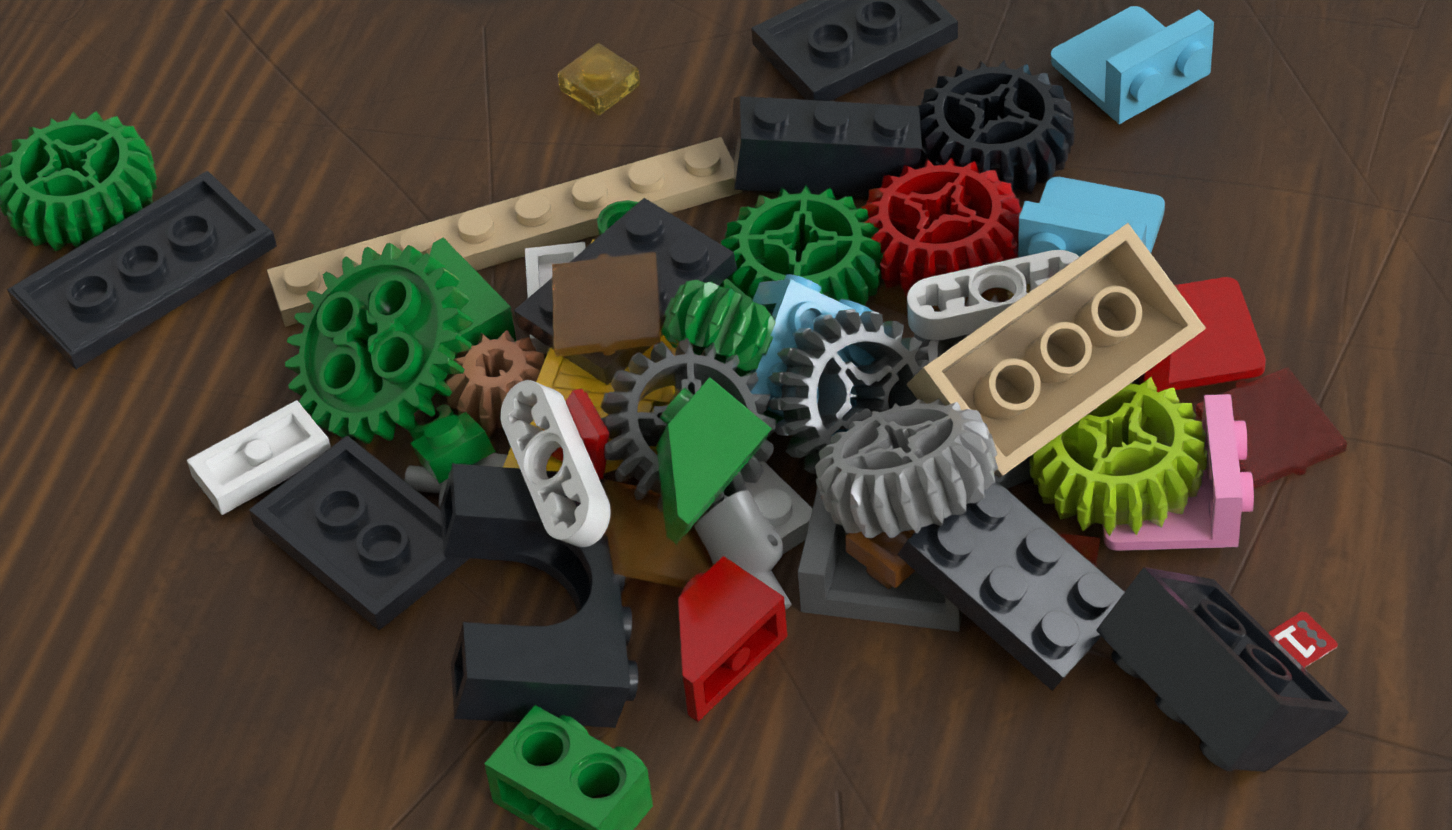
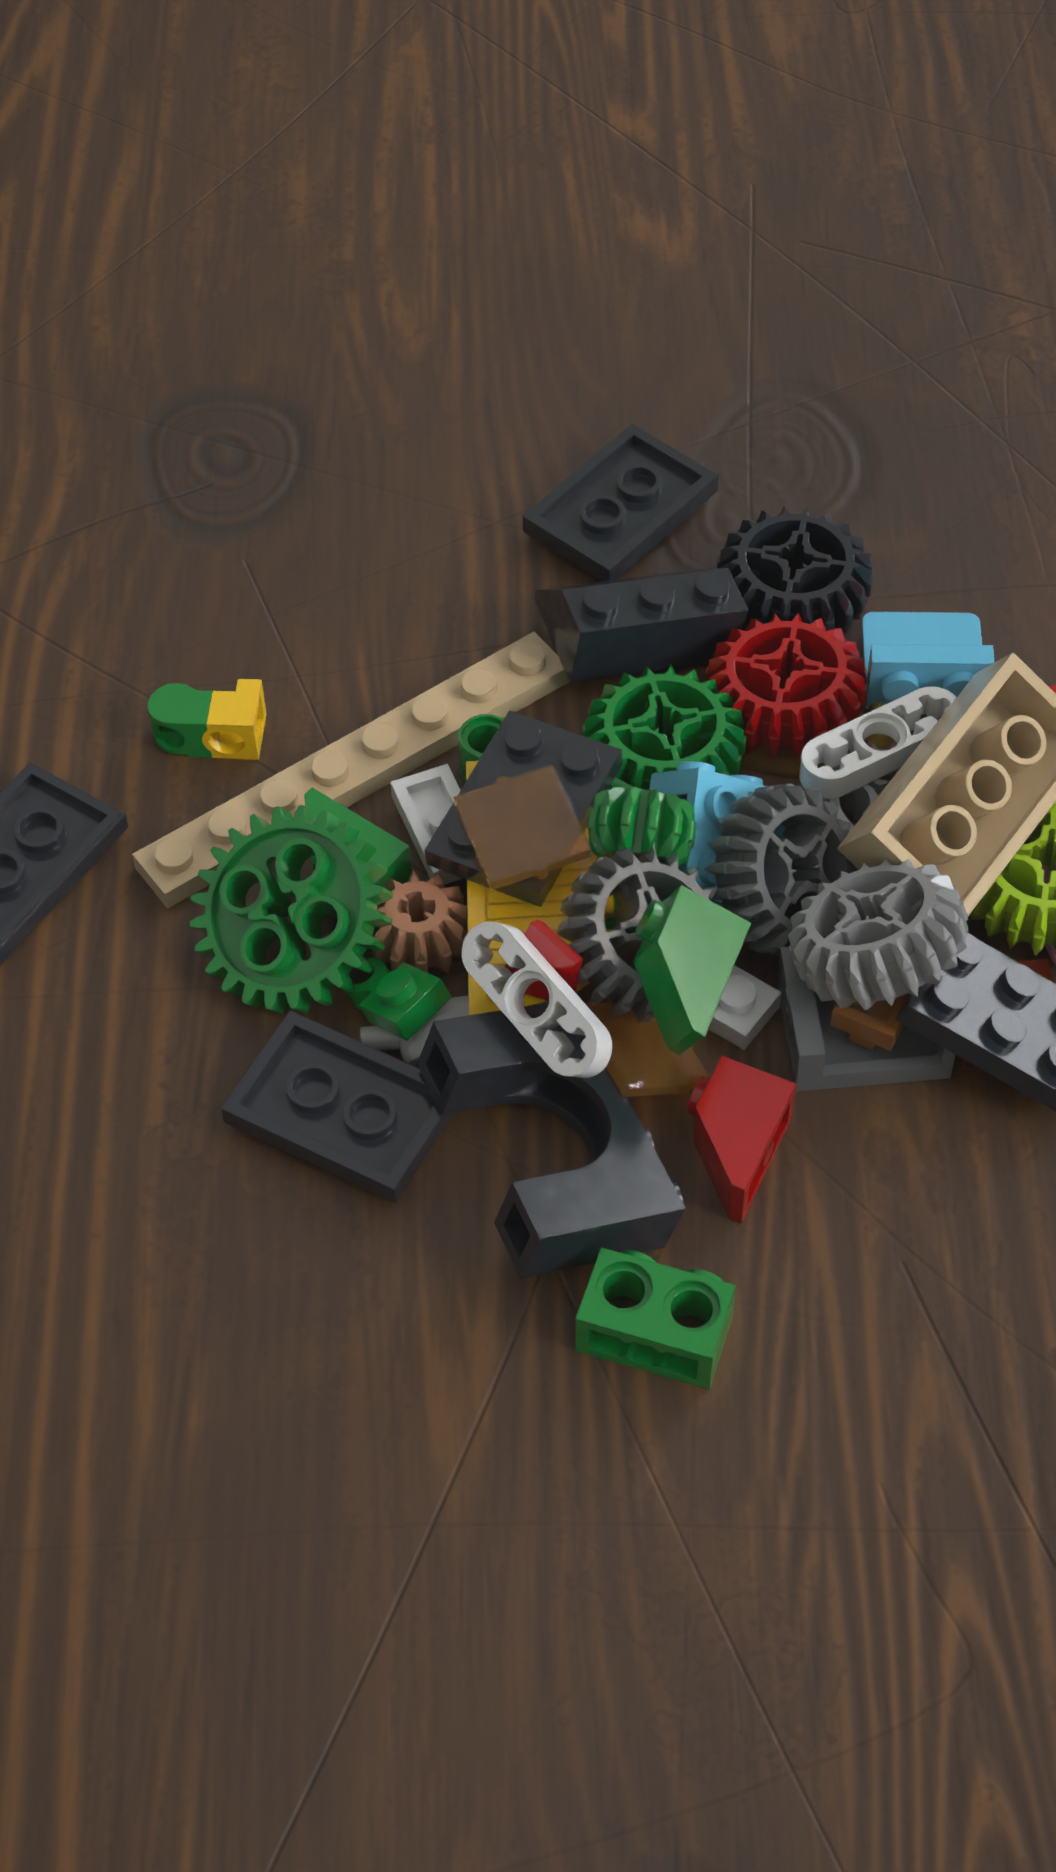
camera: 20 degrees left, 5 degrees up
(258, 457) = (204, 1051): white plate -> none
(386, 164) = (209, 721): none -> leg
(598, 79) = (385, 593): clear yellow plate -> none
(743, 536) = (733, 1035): light grey piece -> none
(1136, 60) = (894, 486): medium azure bracket -> none

